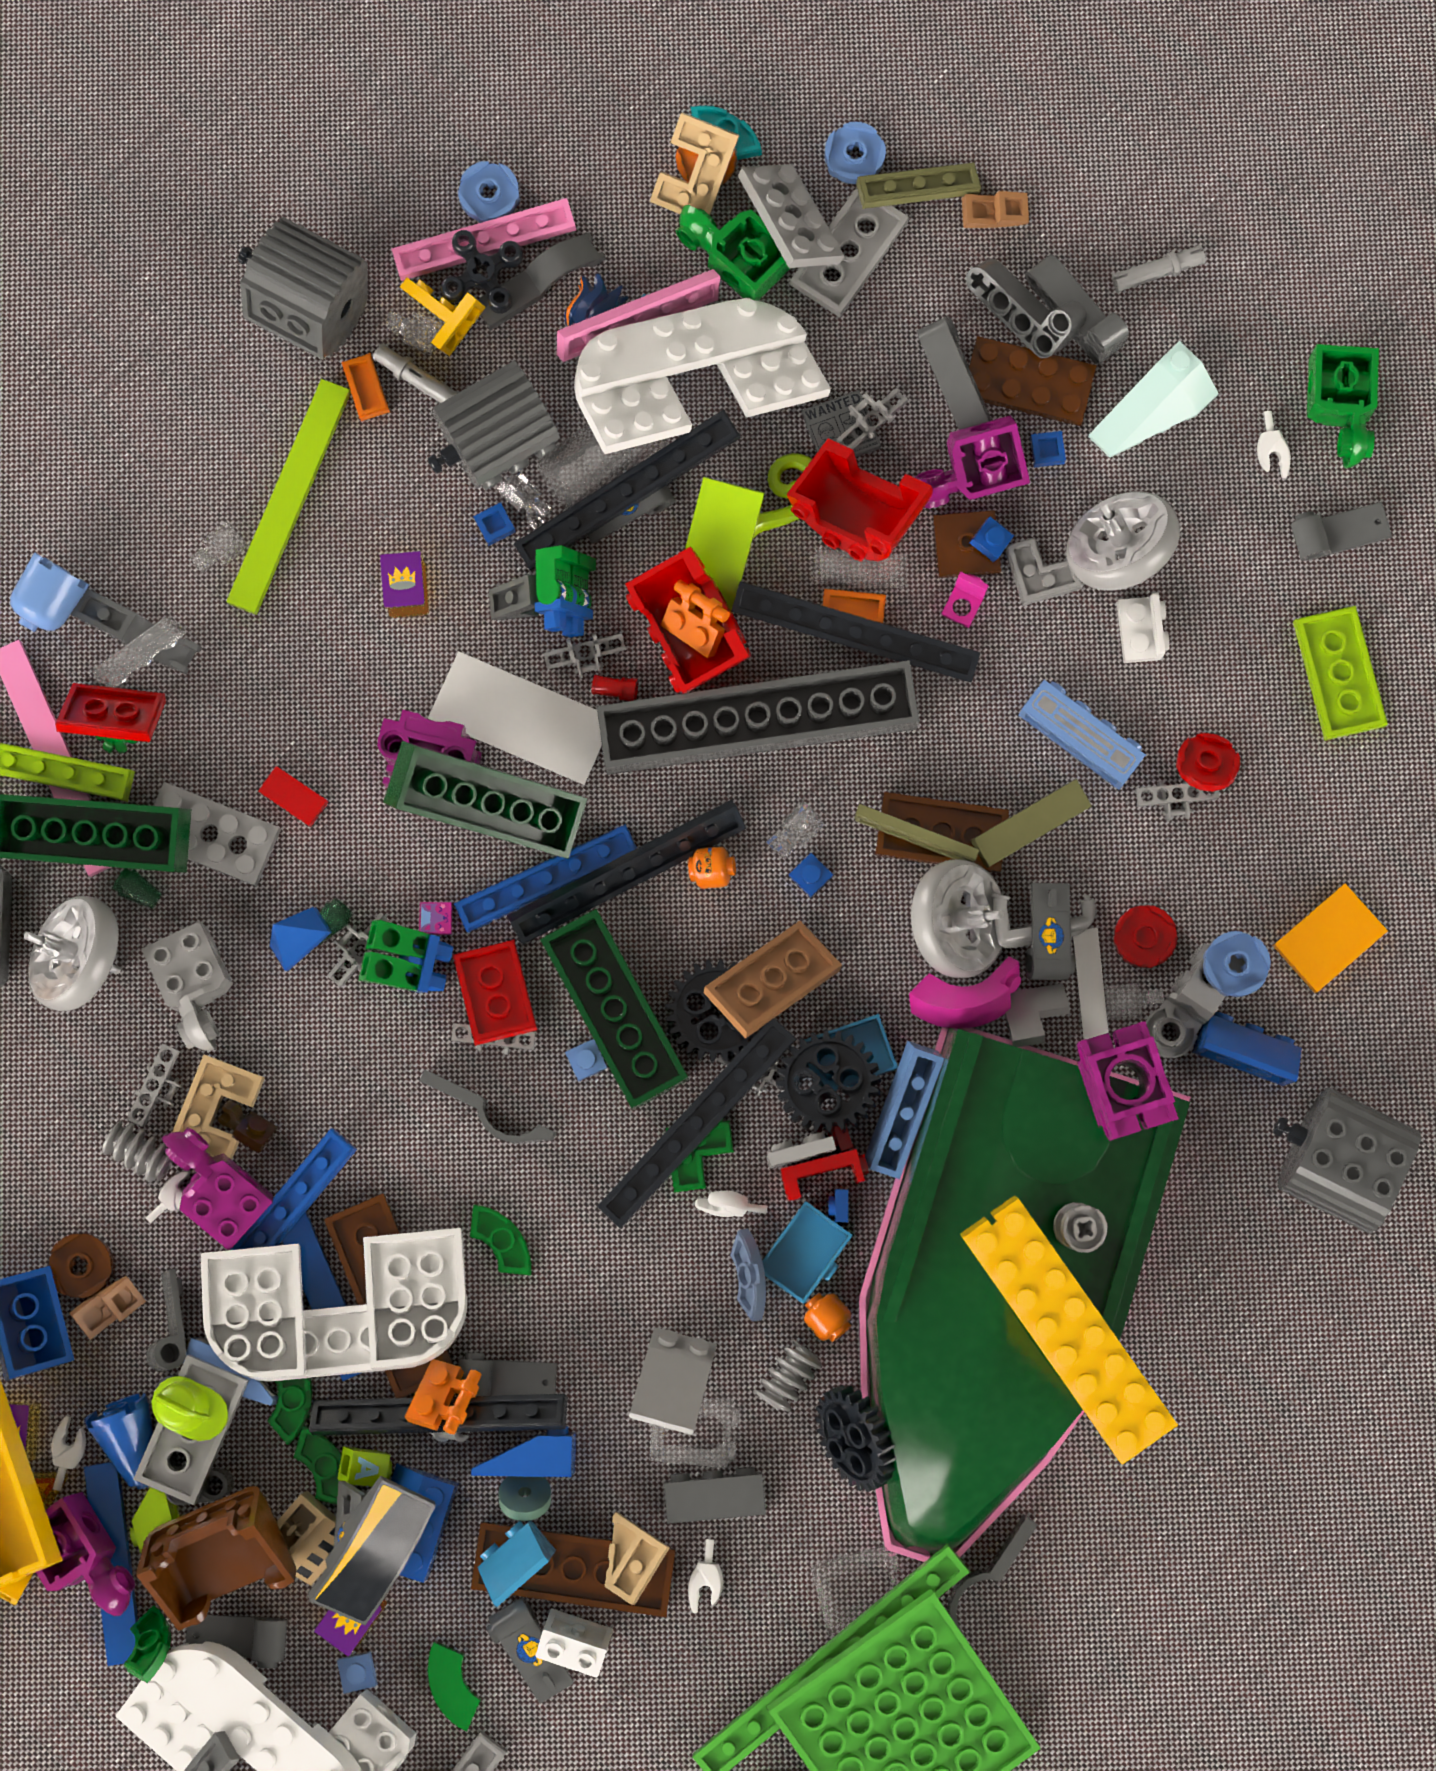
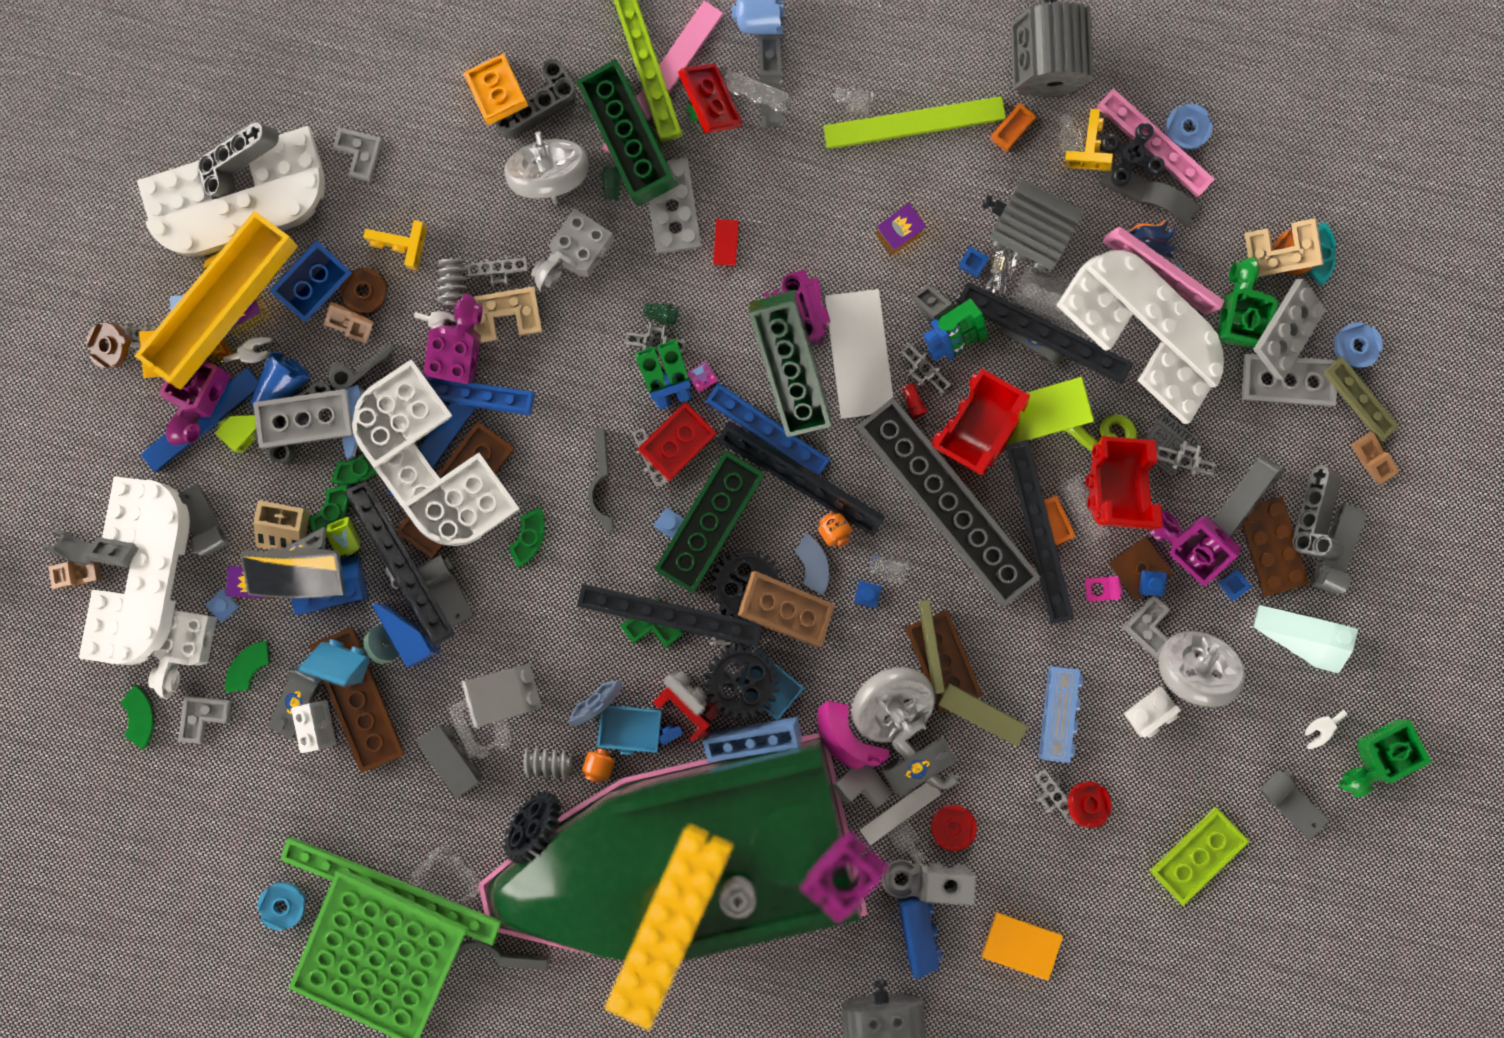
camera: 60 degrees right, 5 degrees up
(51, 1186) = (400, 244): none -> yellow bracket
(151, 1645) = (164, 473): green tile -> none
(189, 1408) = (314, 410): lime piece -> none
(214, 1554) = (237, 477): reddish brown windscreen -> none
(250, 1129) = (505, 344): dark brown plate -> none
(297, 936) = (640, 299): blue slope -> none
(405, 369) = (1039, 146): light grey pin -> none
(436, 1392) = (410, 553): orange plate -> none
(632, 1559) = (382, 732): tan wing -> none
(692, 626) = (981, 426): orange plate -> none
(705, 1574) = (401, 783): white hand -> none
(728, 1204) = (631, 664): white hand -> none
(737, 915) = (815, 564): none -> sand blue tile
(1159, 268) = (1407, 593): light grey pin -> none
(1253, 972) = (969, 912): medium blue plate -> none

